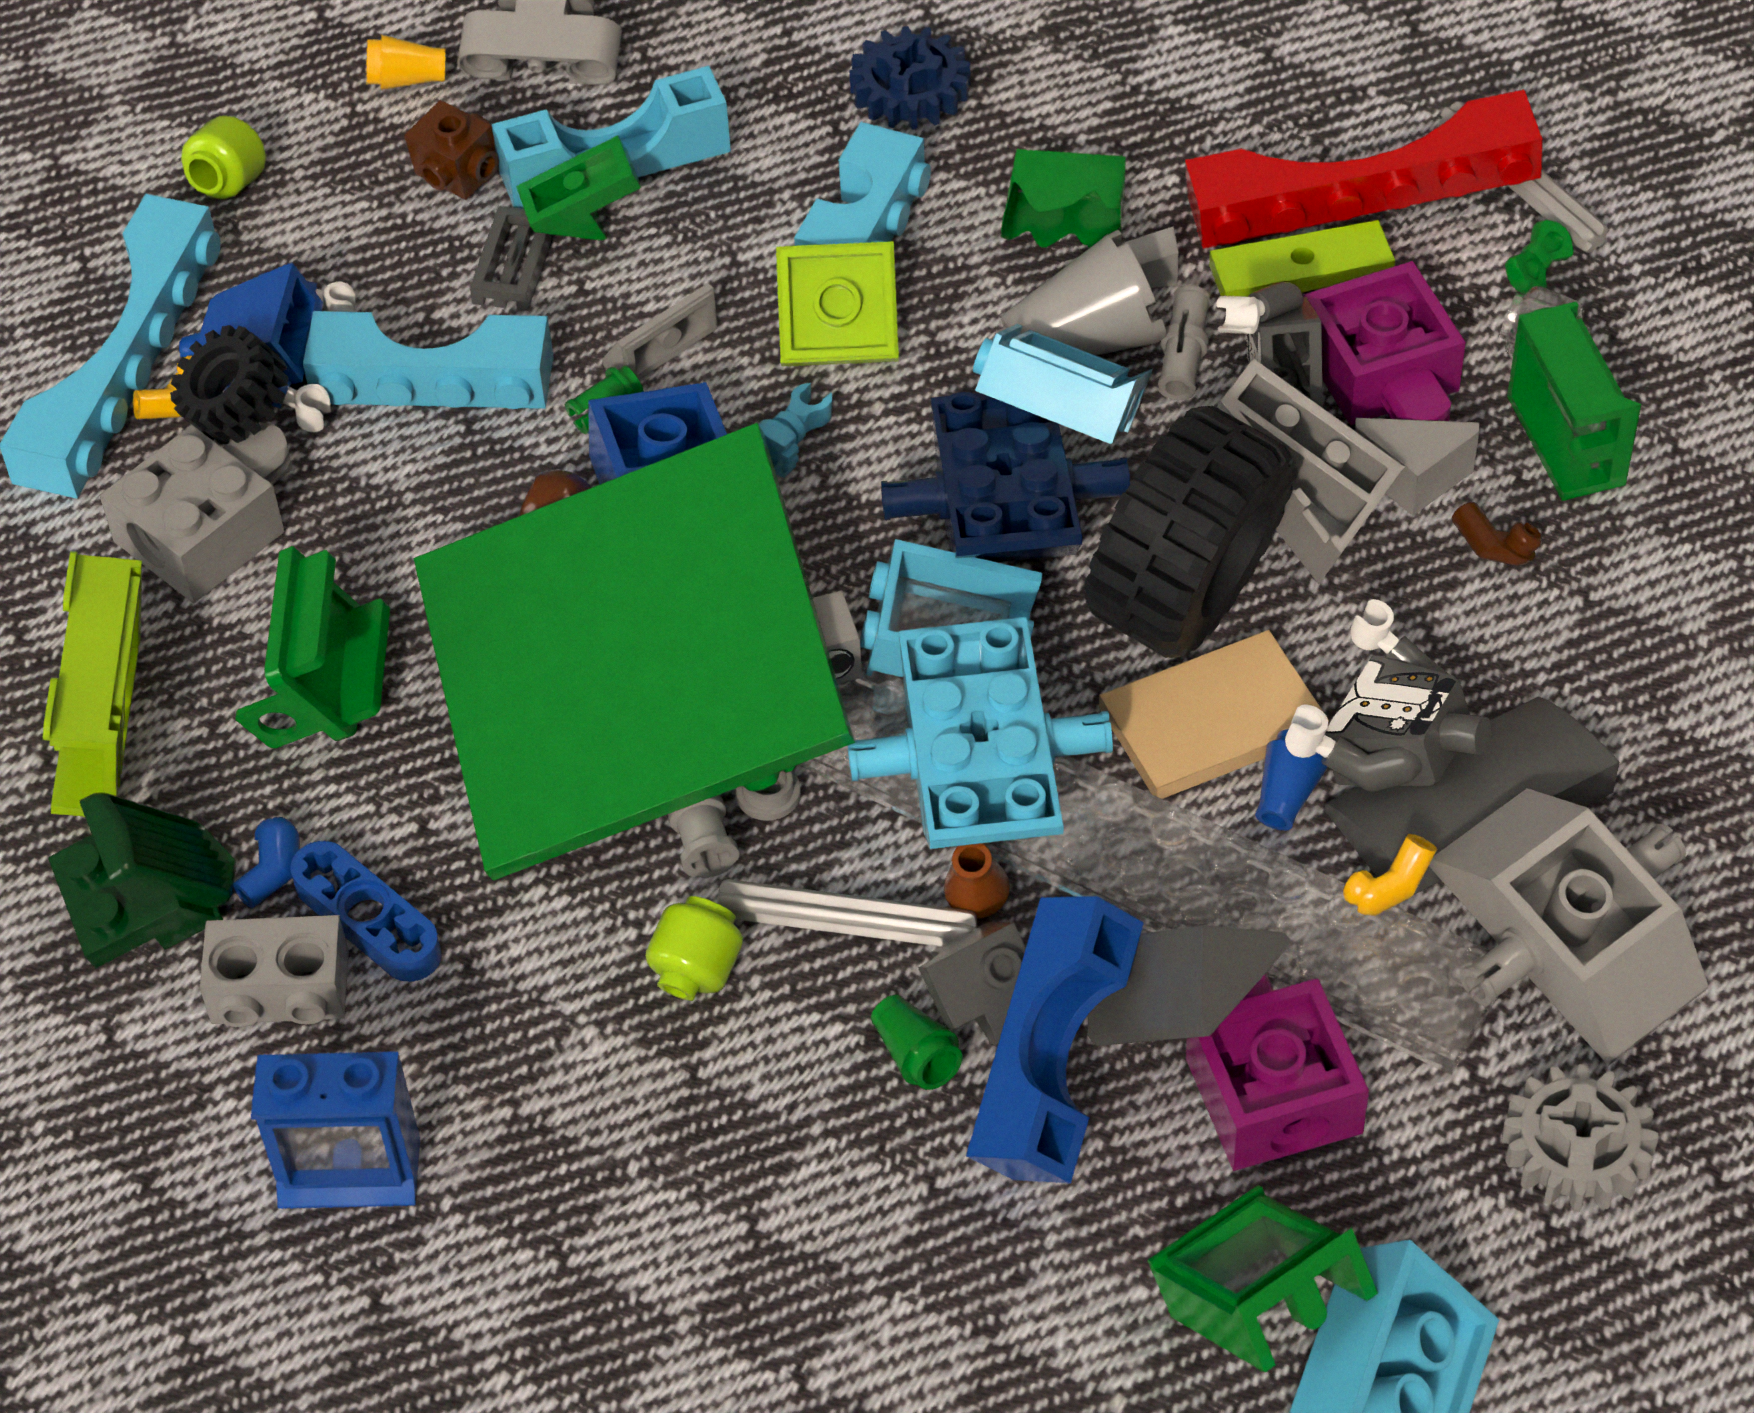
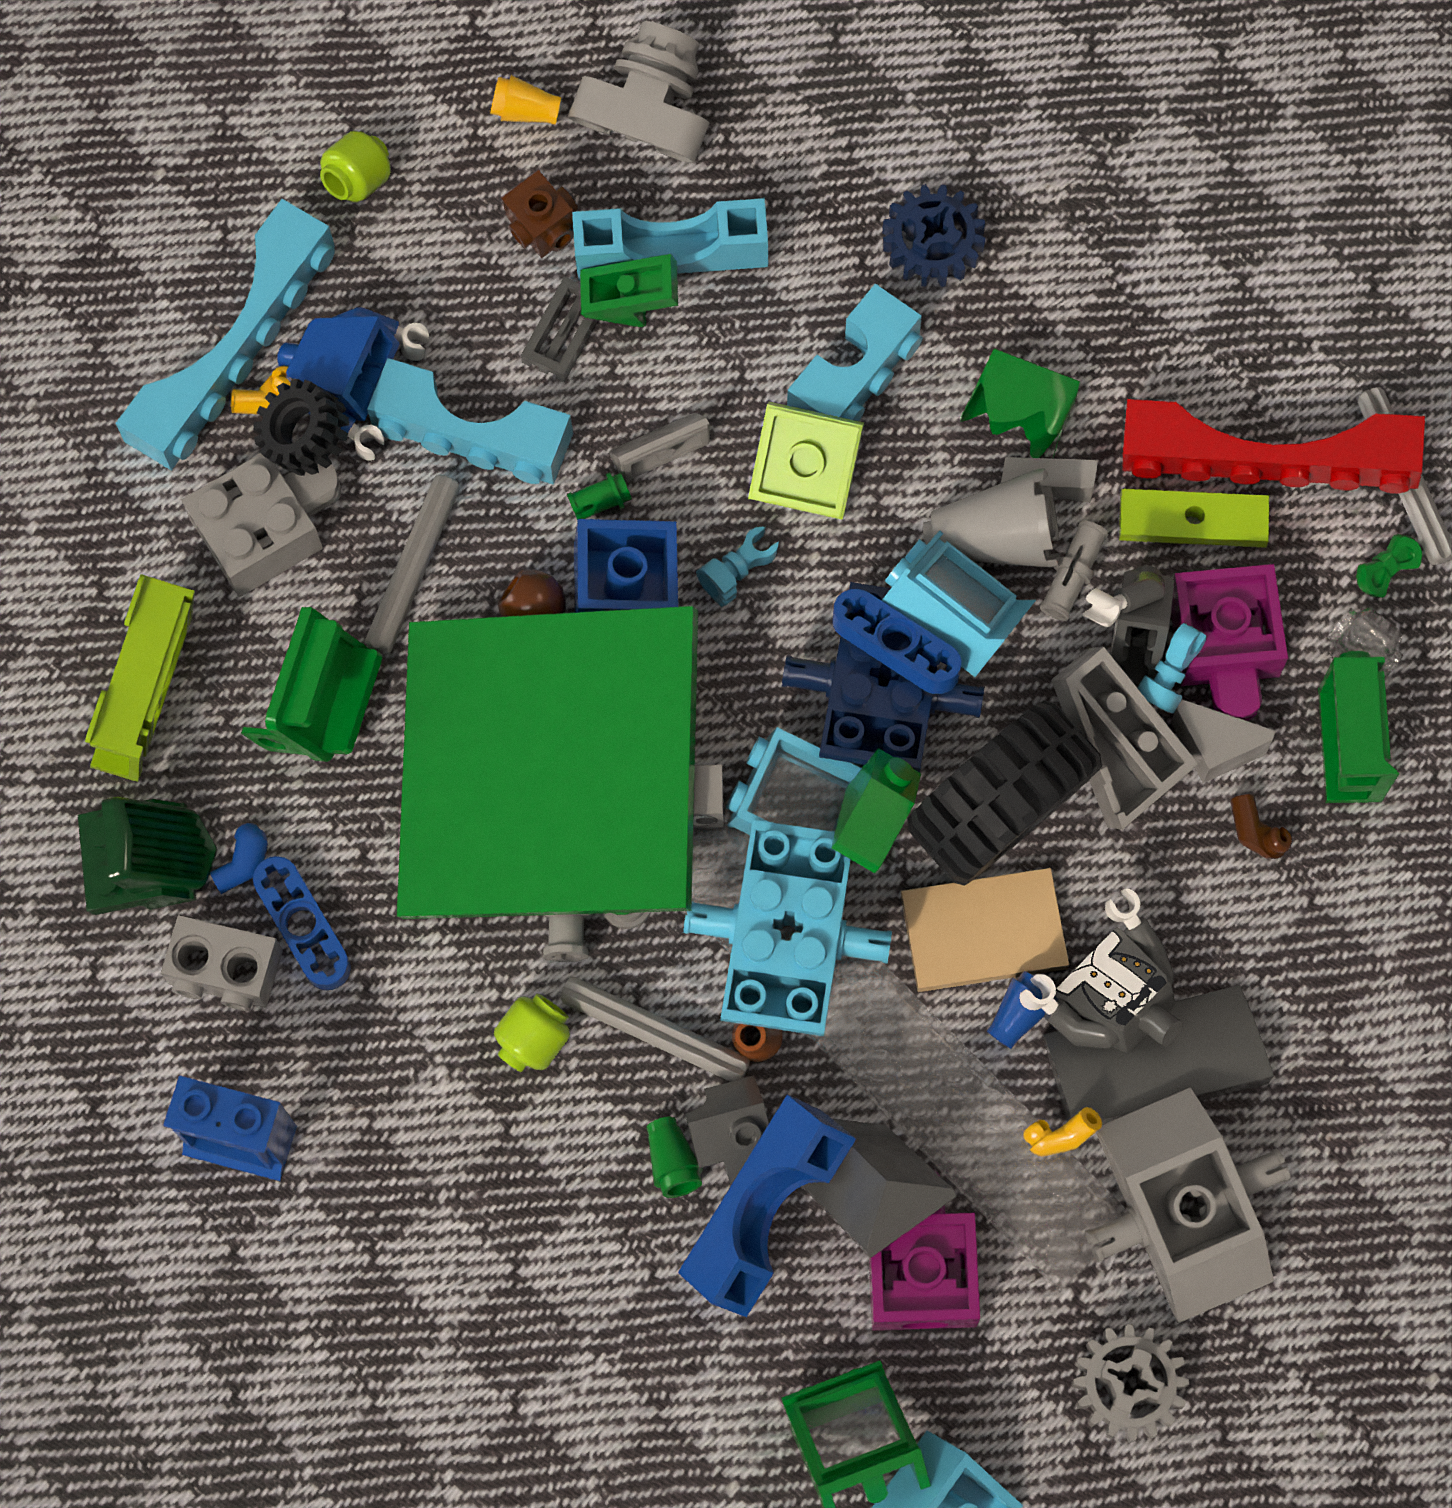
camera: 15 degrees right, 20 degrees up
(400, 513) = (412, 564): none -> light grey axle
(1045, 577) = (875, 809): none -> green slope
(1046, 428) = (901, 661): none -> blue beam
(1343, 356) = (1182, 650): none -> medium azure piece

